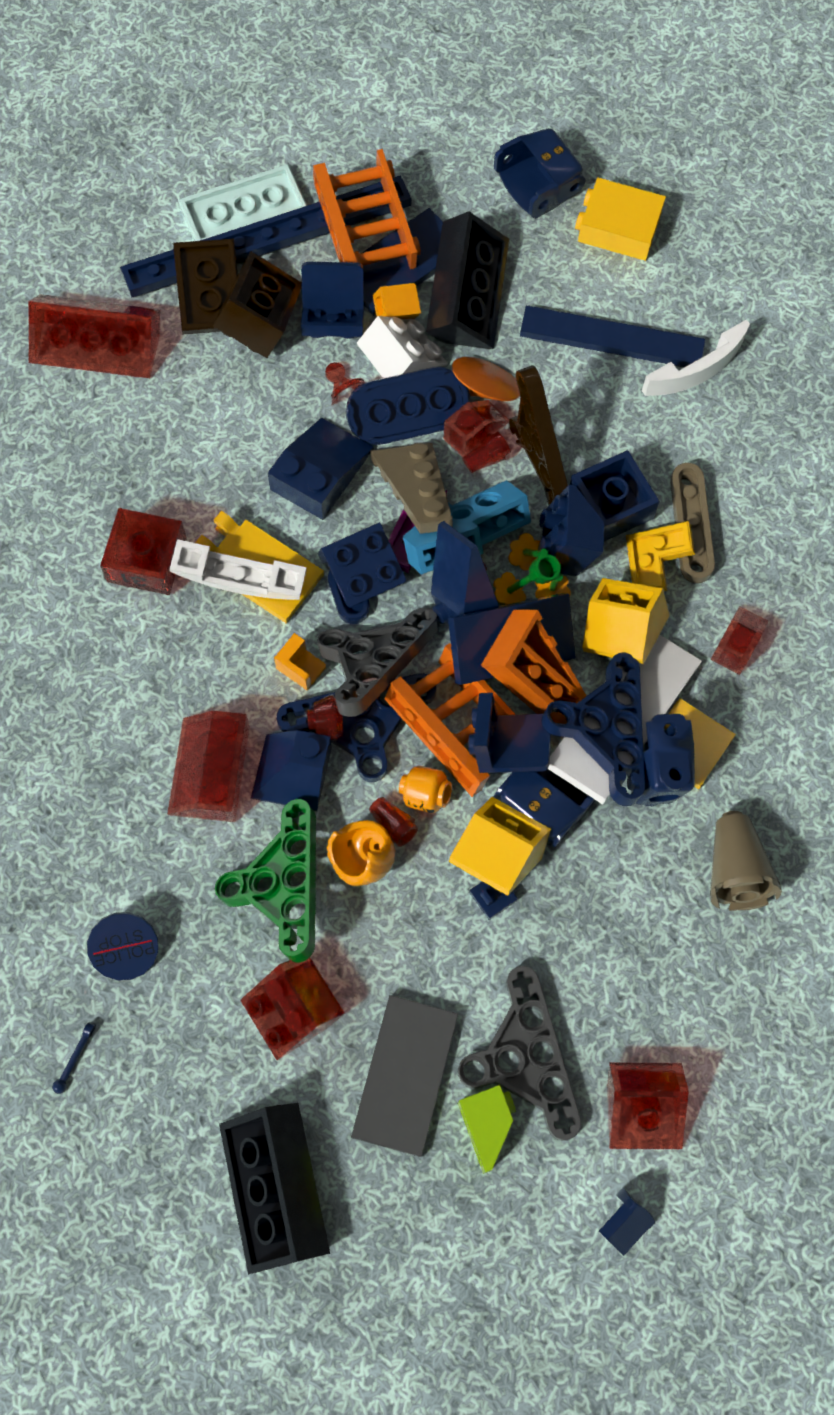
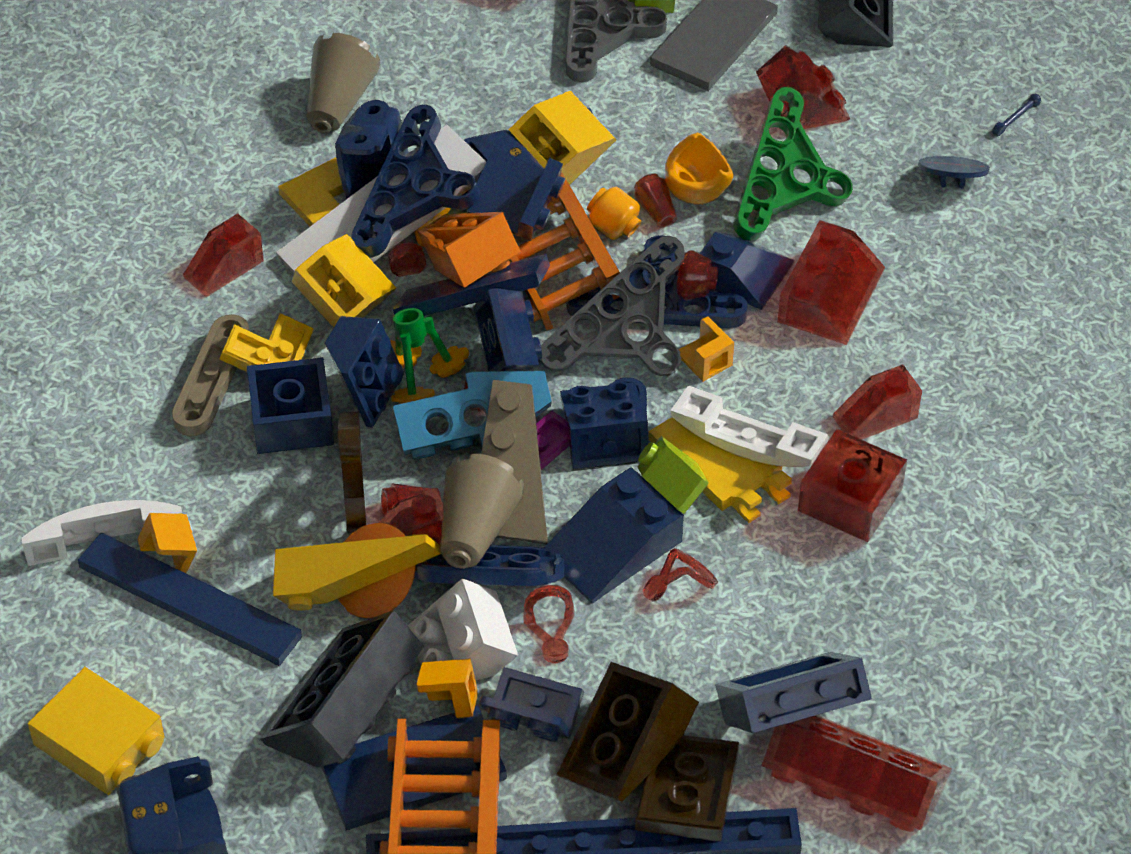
camera: 160 degrees left, 20 degrees down
(129, 325) = (793, 691): none -> dark blue window
(139, 646) = (880, 404): none -> clear red slope
(276, 438) = (658, 584): none -> clear red piece
(285, 508) = (672, 473): none -> lime slope
(423, 410) = (476, 506): none -> dark tan cone
(500, 358) = (333, 570): none -> yellow slope
(590, 679) = (407, 259): none -> clear red tile
(644, 356) = (169, 536): none -> light orange panel

